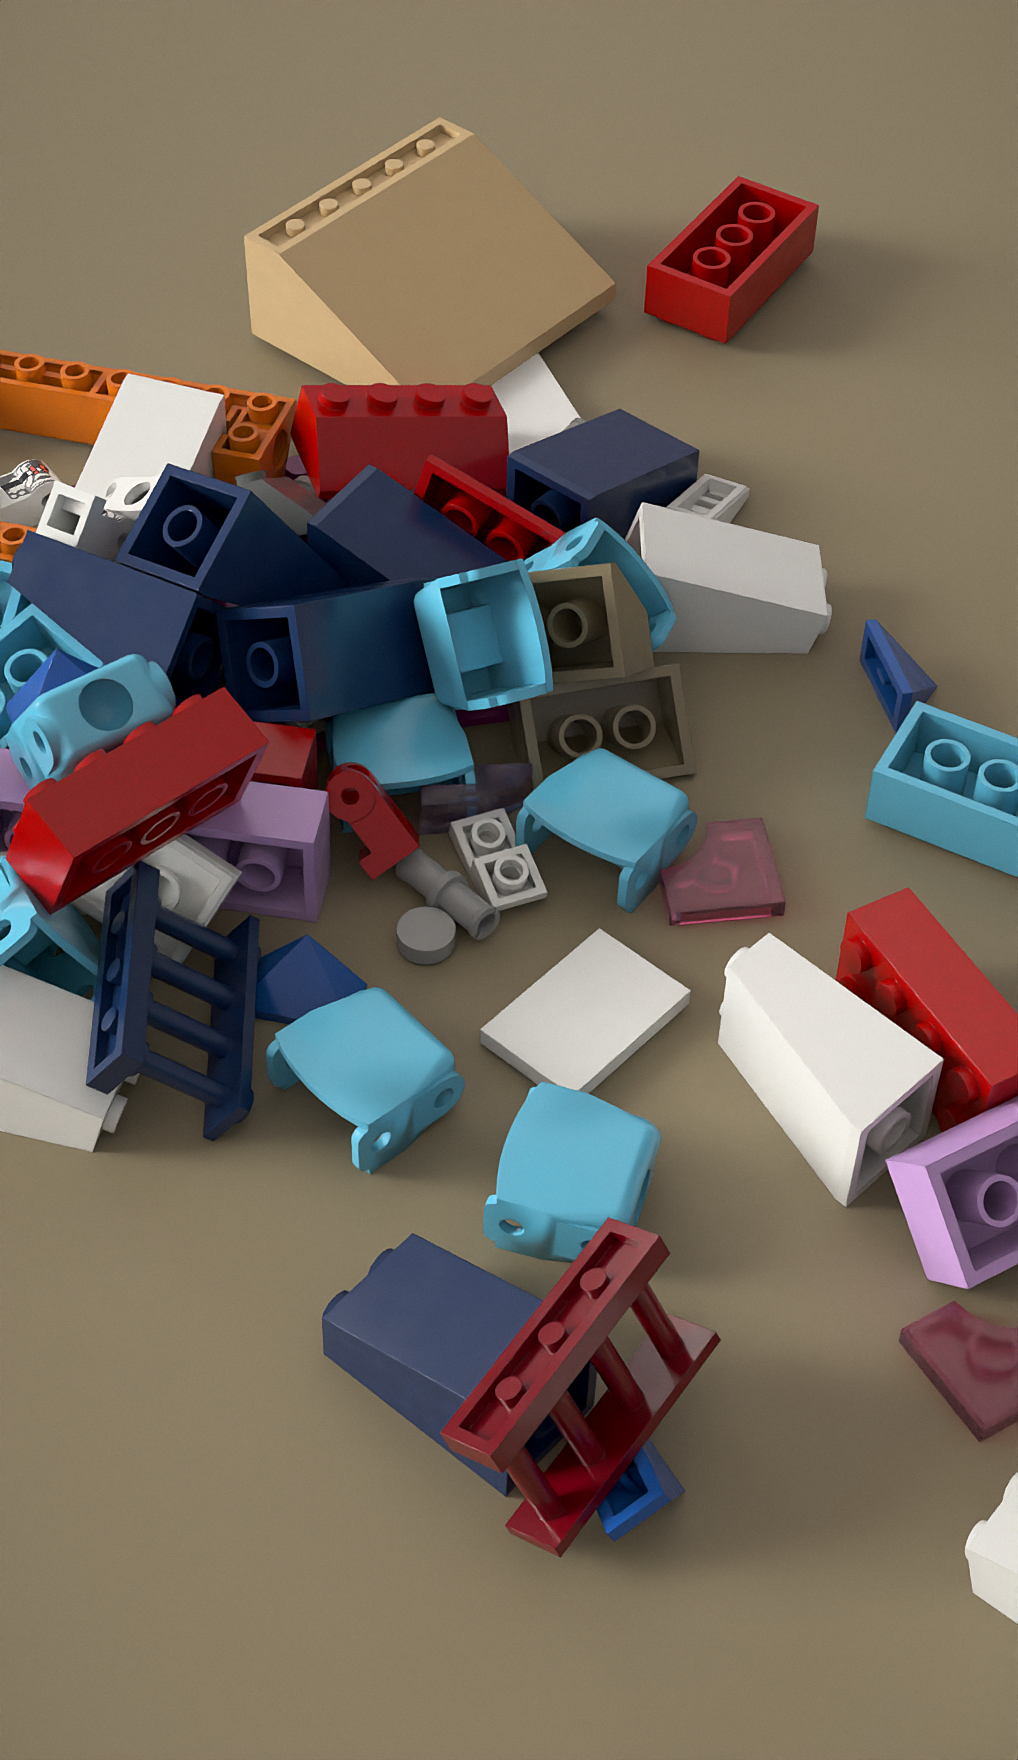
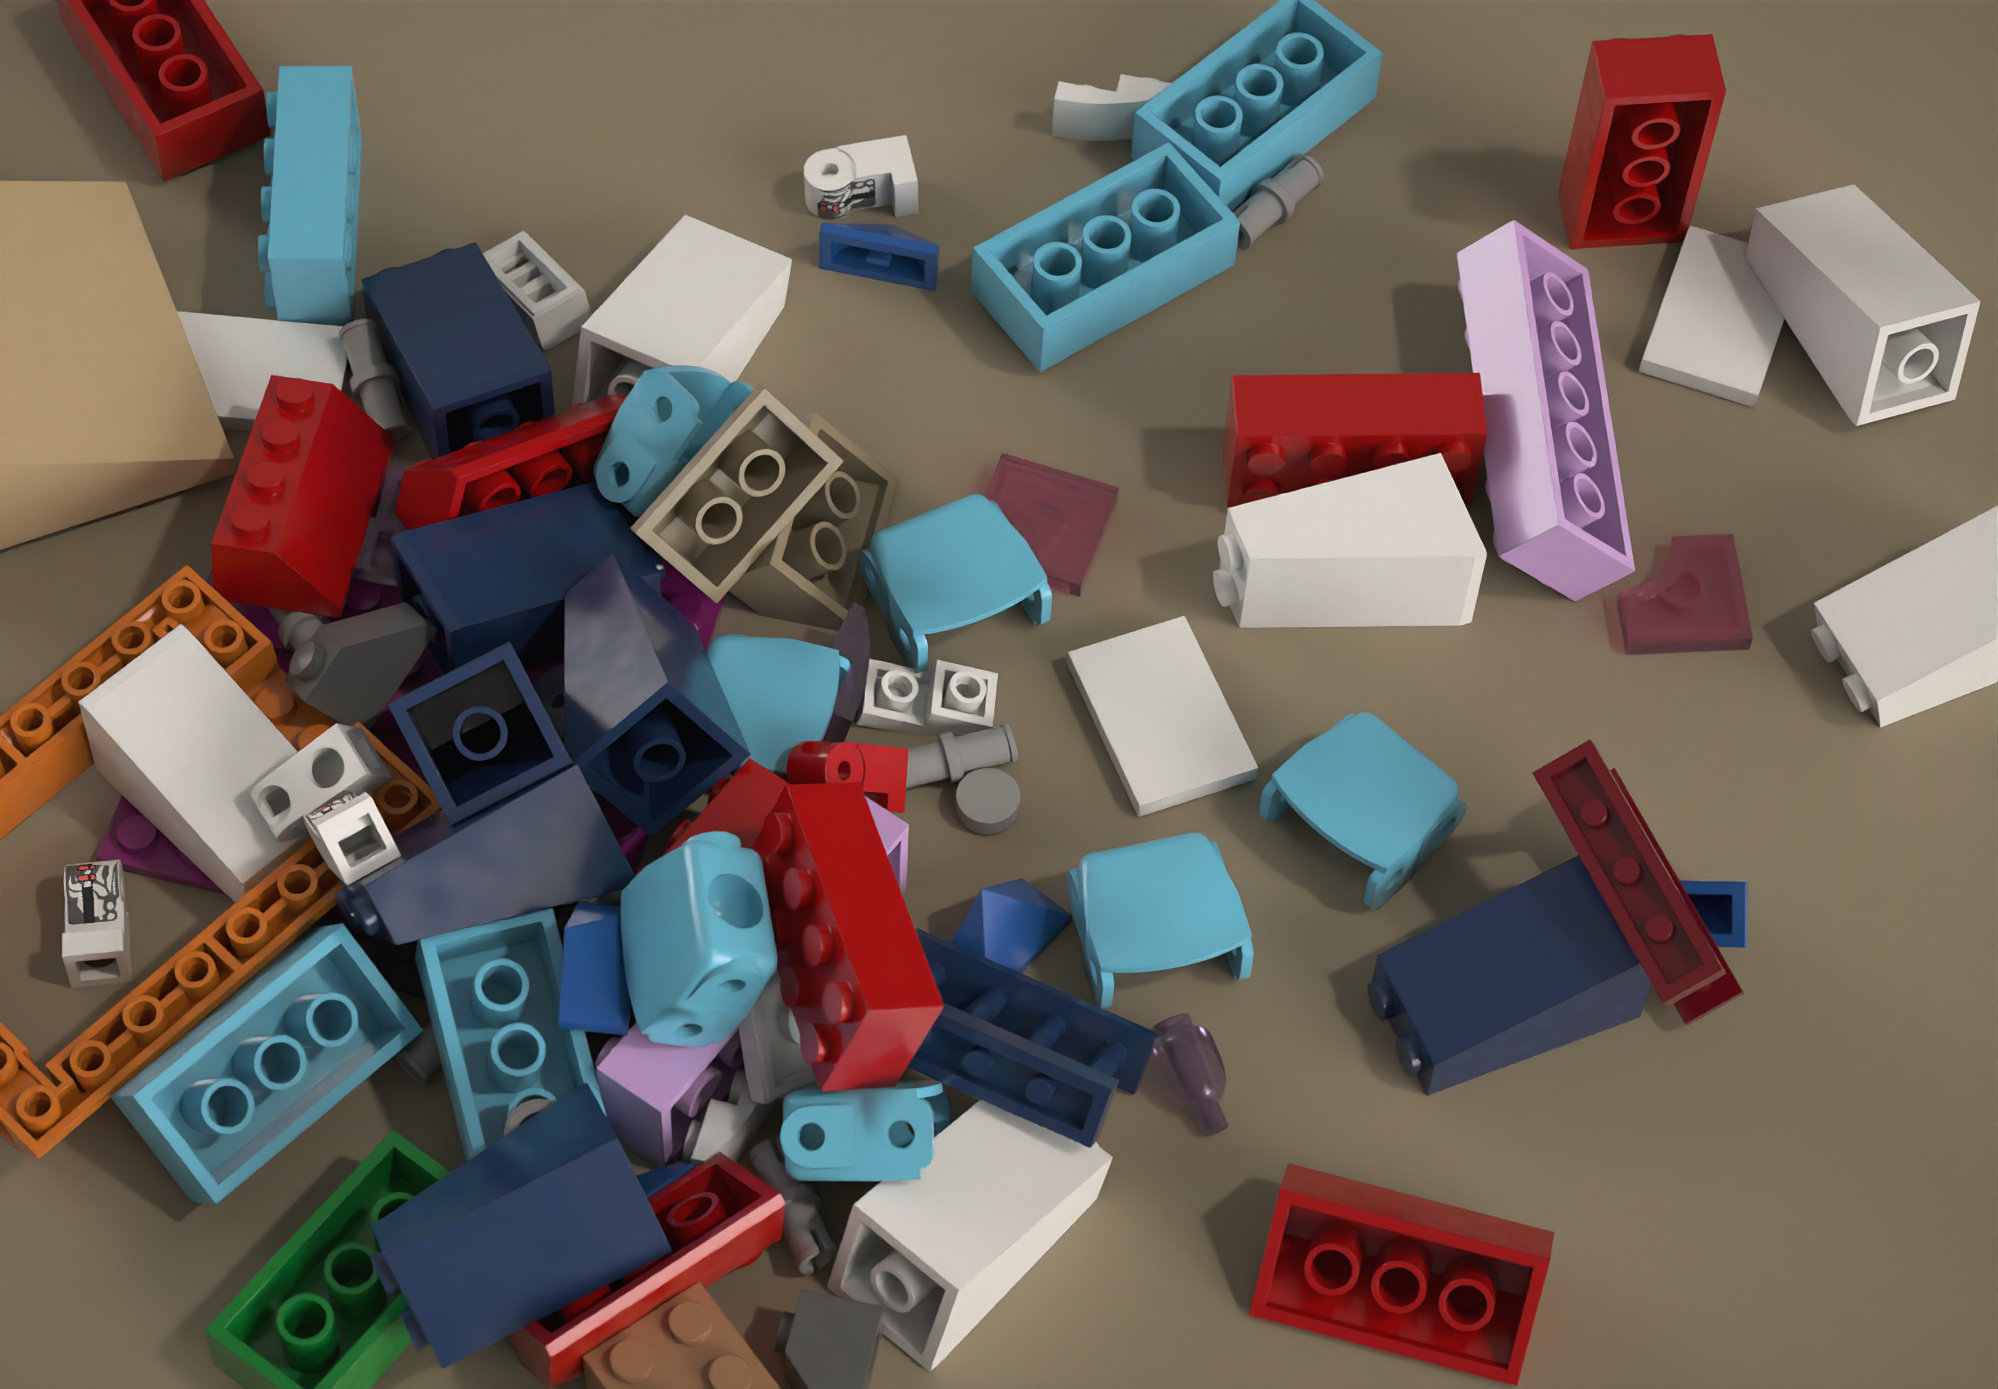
camera: 65 degrees left, 10 degrees up
(112, 1388) = (1402, 1274): none -> red slope
(240, 1160) = (1191, 1070): none -> plant
(484, 637) = (739, 551): medium azure piece -> none
(674, 358) = (311, 196): none -> medium azure brick
(954, 641) = (861, 178): none -> white leg

